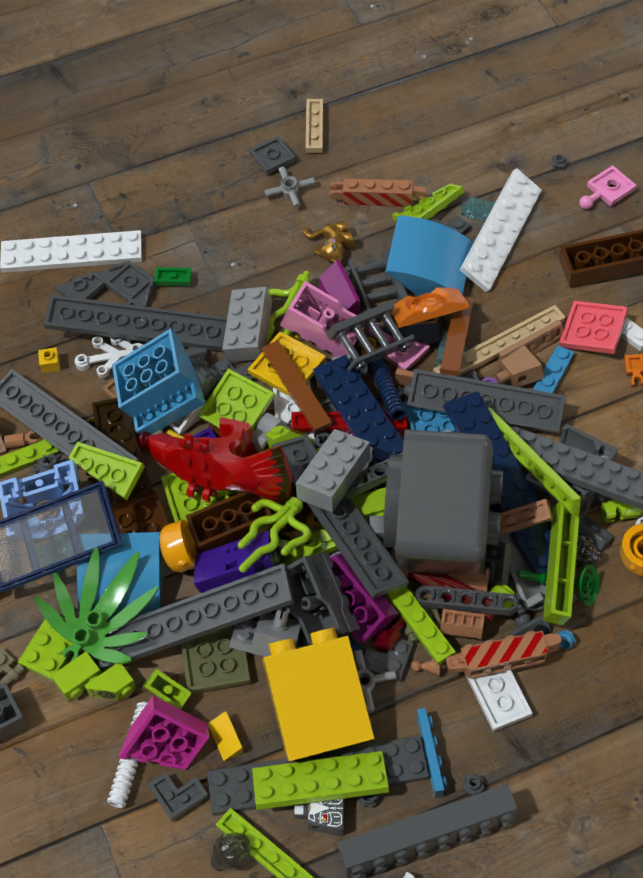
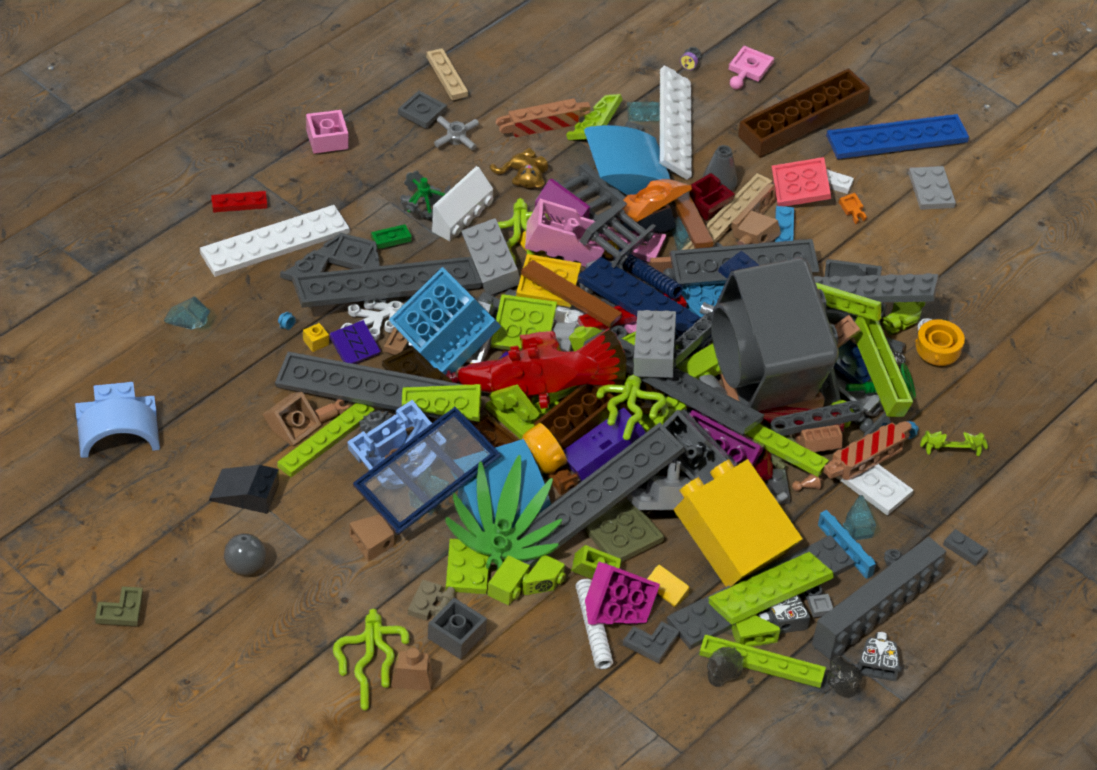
camera: 30 degrees left, 10 degrees down
(33, 335) = (286, 320): none -> dark azure plate
(62, 204) = (239, 201): none -> red plate
(78, 377) = (354, 343): none -> dark purple tile
(171, 156) = (327, 131): none -> bright pink brick
(173, 482) = (514, 398): none -> lime plate
(187, 585) = (563, 480): none -> dark orange bracket
(232, 244) = (429, 193): none -> dark grey plant
(250, 261) = (462, 204): none -> white slope
(281, 822) = (755, 632): none -> lime slope
(366, 815) = (819, 604): none -> light grey plate
(456, 729) = (860, 520): none -> clear light blue slope
(492, 317) = (710, 196): none -> dark red plate
(516, 296) = (723, 167): none -> dark grey cone
(550, 168) = (689, 61): none -> tile
(557, 799) = (965, 547): none -> dark grey plate
(625, 677) = (938, 440): none -> lime piece

